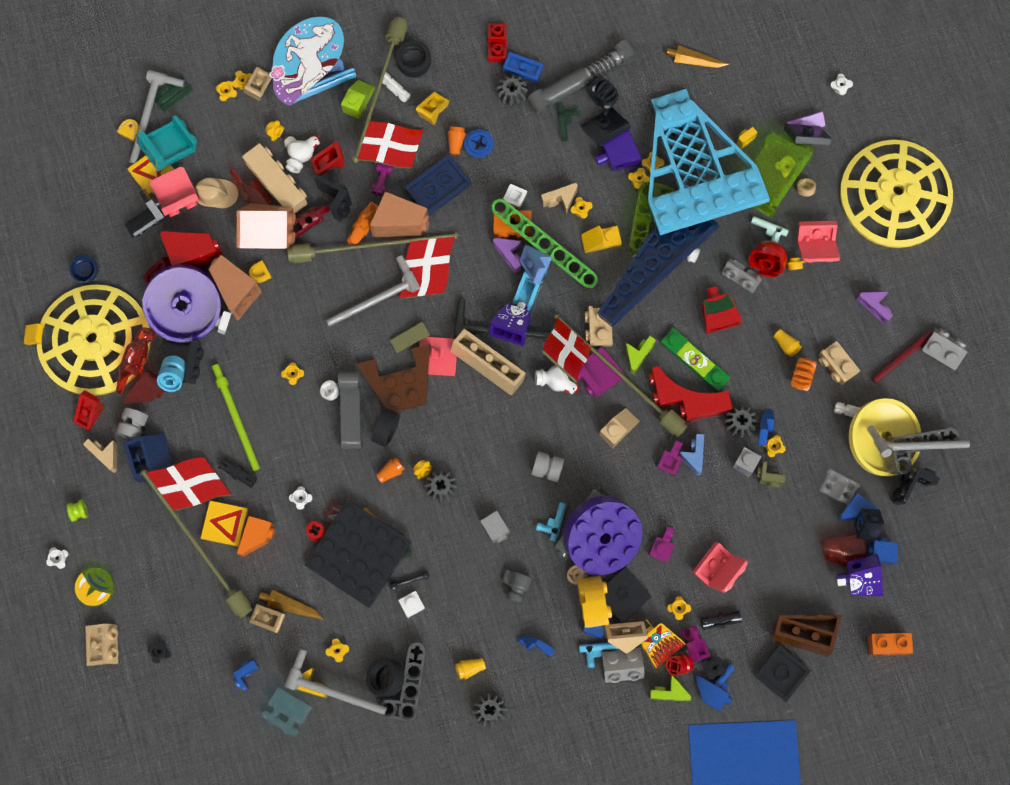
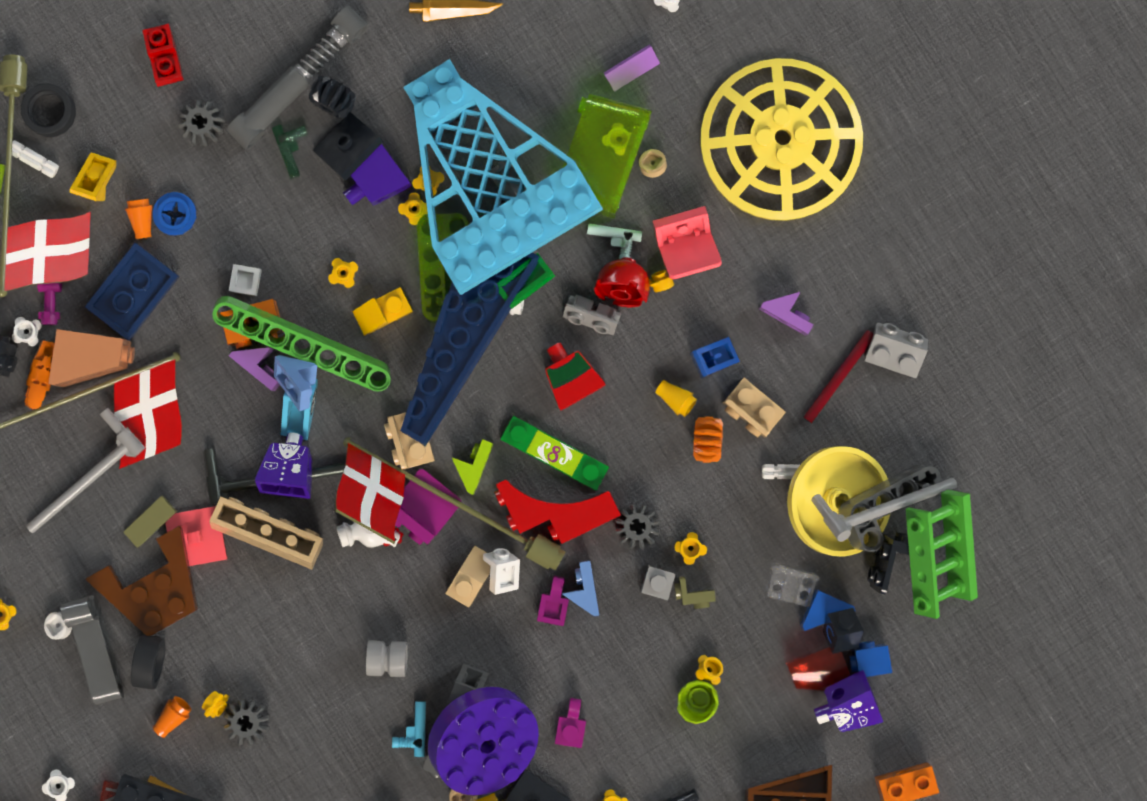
camera: 15 degrees left, 10 degrees up
(360, 190) = (20, 326): none -> white plate
(495, 527) = (335, 760): light grey brick -> none
(523, 67) = (209, 84): blue plate -> none
(564, 195) = (317, 260): tan slope -> none
(642, 428) = (503, 570): none -> white bracket
(714, 238) = (538, 278): none -> green tile
(719, 568) = (654, 741): coral bracket -> none
(746, 137) = (551, 110): yellow plate -> none
(756, 549) = (697, 701): none -> lime hair
(766, 426) = (673, 521): blue slope -> none
(769, 530) = (715, 667): none -> yellow plate
(807, 134) = (636, 88): black plate -> none
(818, 322) = (714, 357): none -> blue slope
(962, 486) = (958, 548): none -> bright green fence

